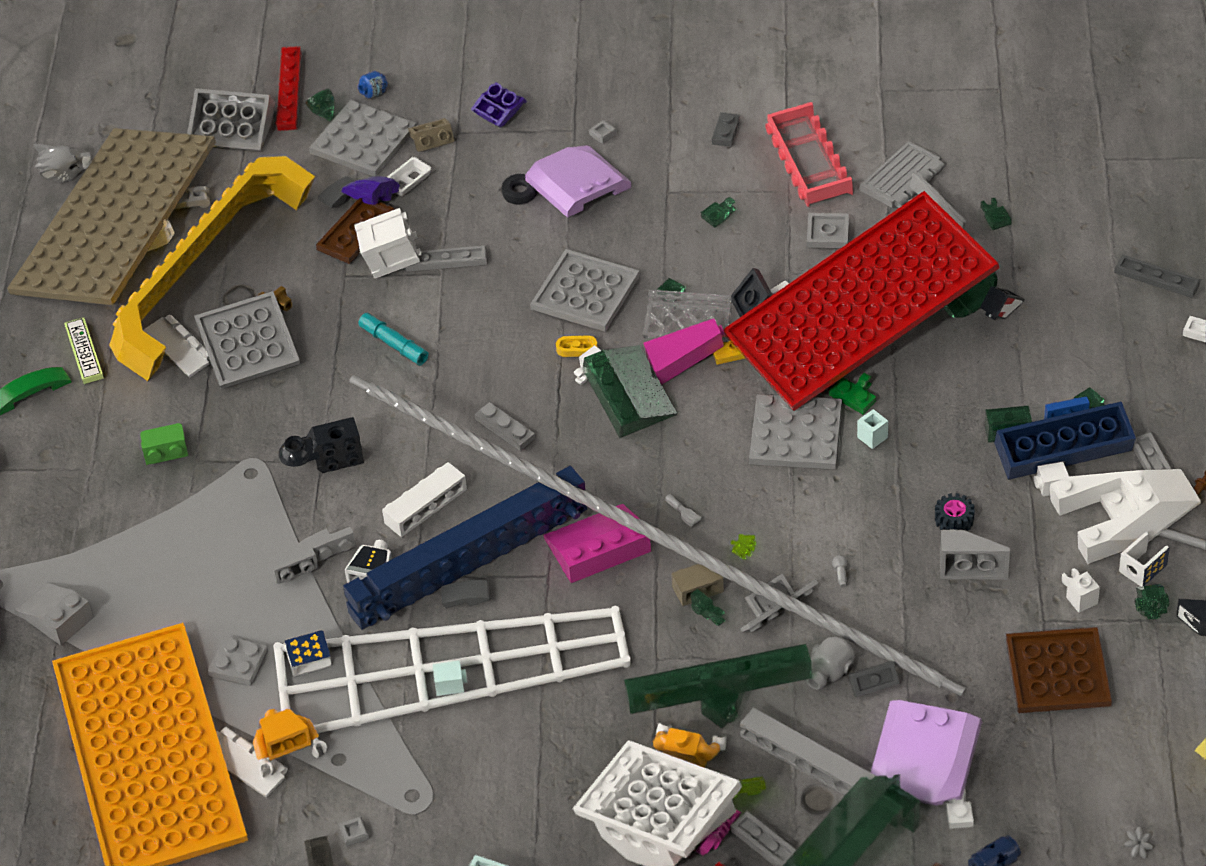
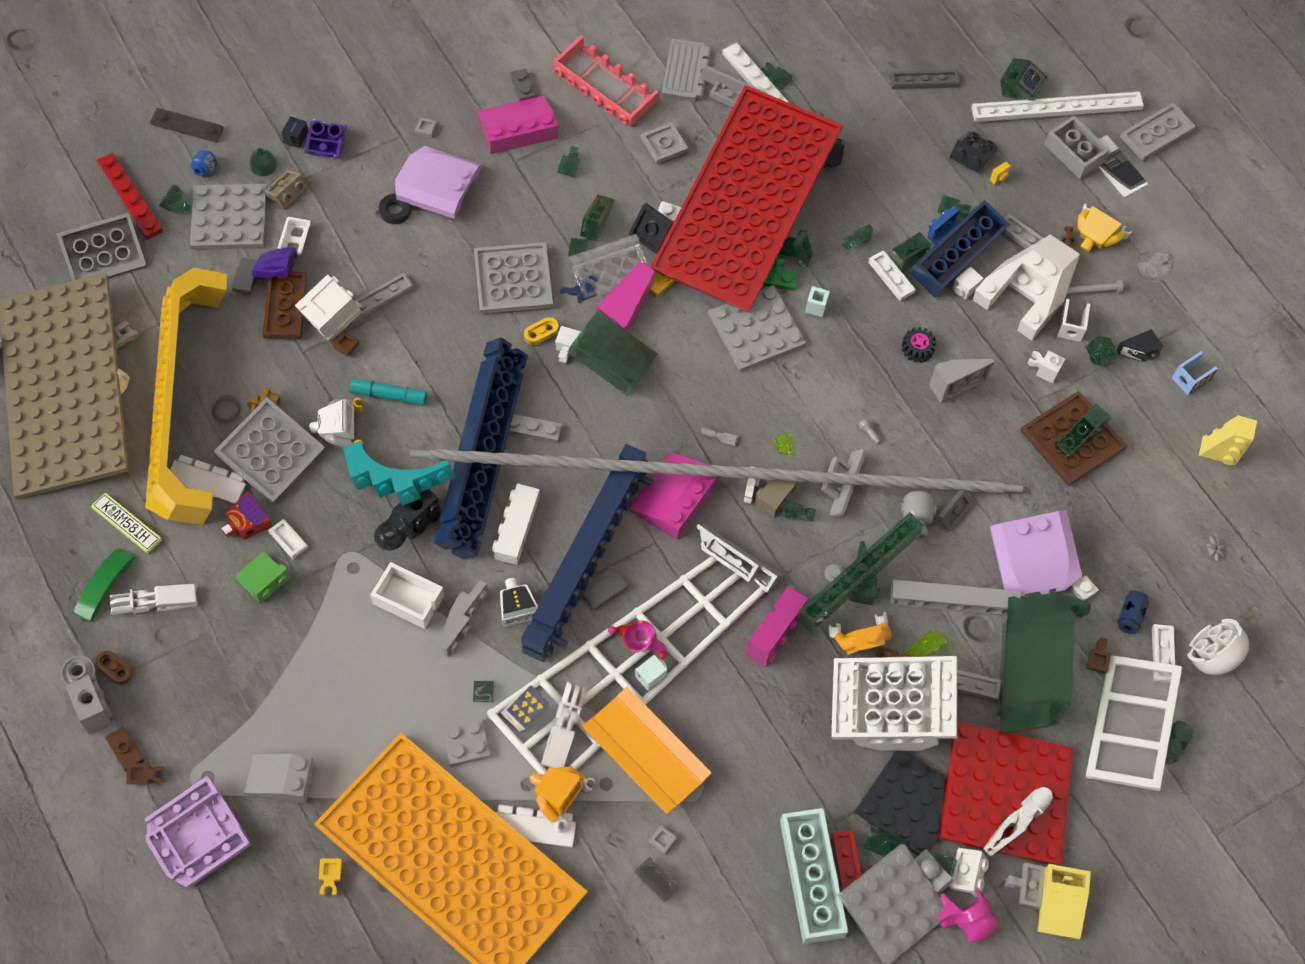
camera: 40 degrees left, 15 degrees up
(34, 709) = (329, 873): none -> yellow plate
(68, 423) = (166, 598): none -> white arm
(185, 389) = (246, 518): none -> torso
(211, 423) = (288, 539): none -> white tile
(275, 511) = (407, 595): none -> white piece
(285, 626) = (483, 691): none -> clear green tile
(324, 344) = (337, 422): none -> white torso
(325, 691) = (559, 737): none -> white arm
(330, 407) = (385, 480): none -> teal arch
(383, 49) = (186, 125): none -> clear smoke plate
(385, 283) = (345, 344): none -> reddish brown plate
(391, 742) = (647, 750): none -> light orange hinge
(427, 103) = (262, 162): none -> clear green helmet
(455, 400) = (484, 431): none -> dark blue brick
(460, 642) = (640, 637): none -> dark pink piece
(473, 87) = (294, 132): none -> black brick
(596, 699) = (778, 623): none -> dark pink wedge
(612, 622) = (738, 559): none -> light grey wedge
(640, 326) = (575, 290): none -> dark blue piece
(678, 562) = (750, 488): none -> white plate
(692, 161) = (518, 124): none -> dark pink slope
(704, 269) = (596, 217): none -> clear green slope
(889, 370) = (798, 247): none -> clear green bracket
(933, 822) = (1078, 606): none -> clear green plate
(968, 390) = (859, 237): none -> clear green plate
(971, 205) = (750, 71): none -> white plate
(975, 440) = (891, 275): none -> white plate
(1071, 661) = (1085, 429): none -> clear green slope
(1155, 357) = (973, 151): none -> black bracket
(1171, 391) = (1000, 173): none -> yellow plate

